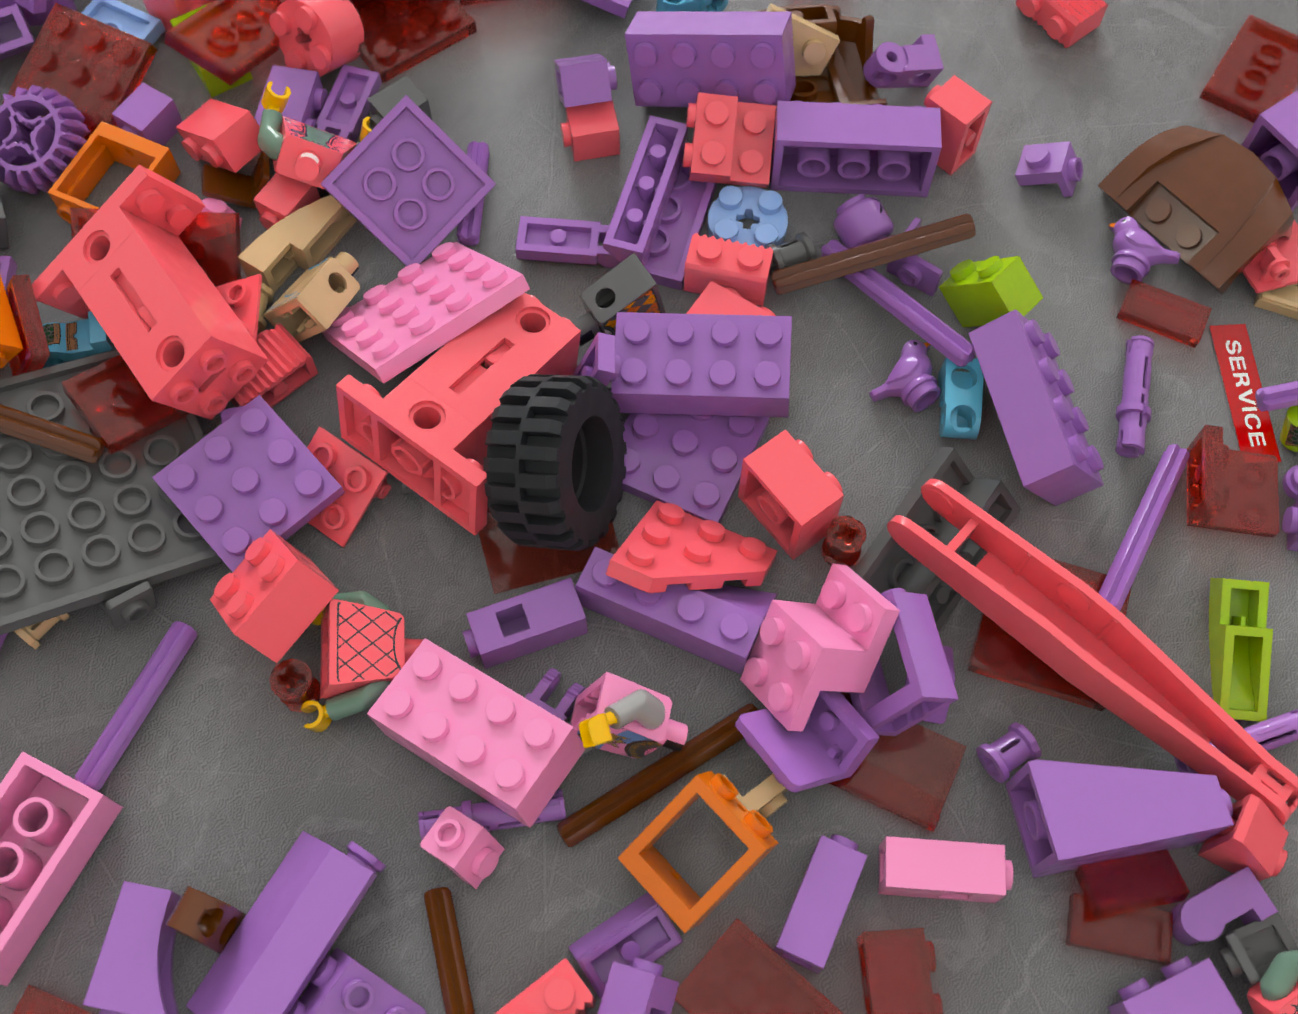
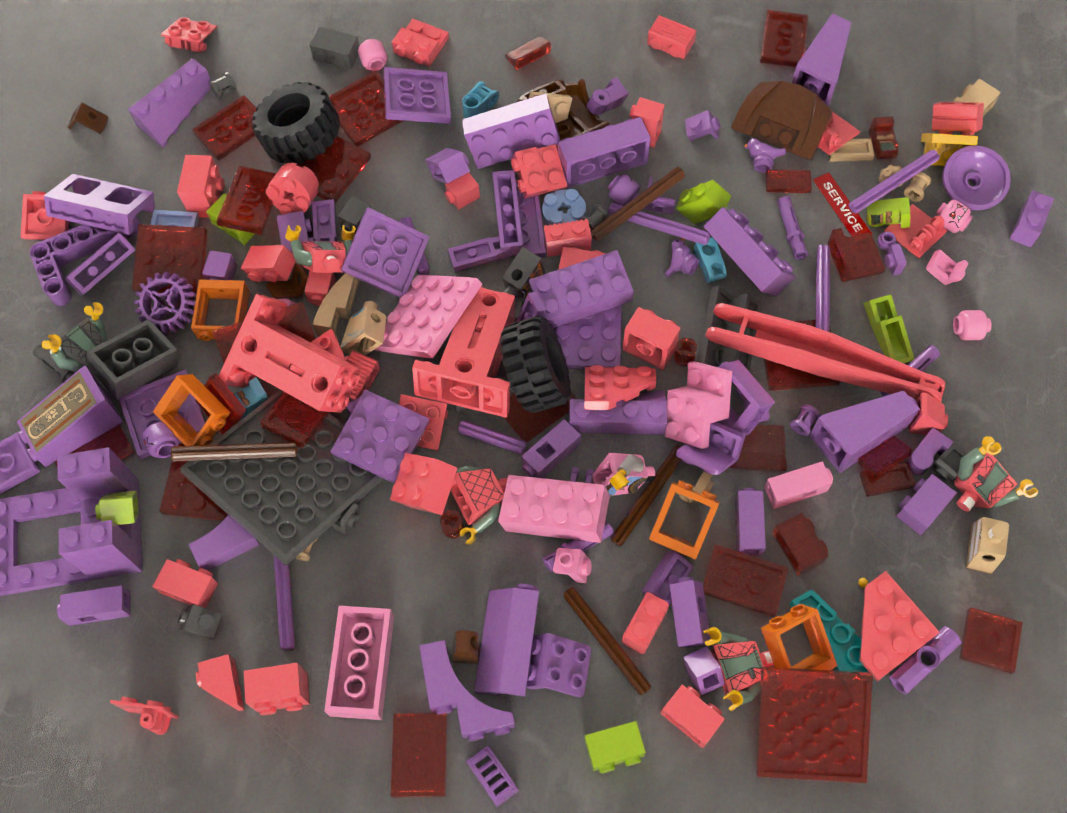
camera: 20 degrees left, 0 degrees up
(136, 706) = (375, 563): medium lavender axle -> none
(441, 560) = (492, 437): none -> medium lavender axle

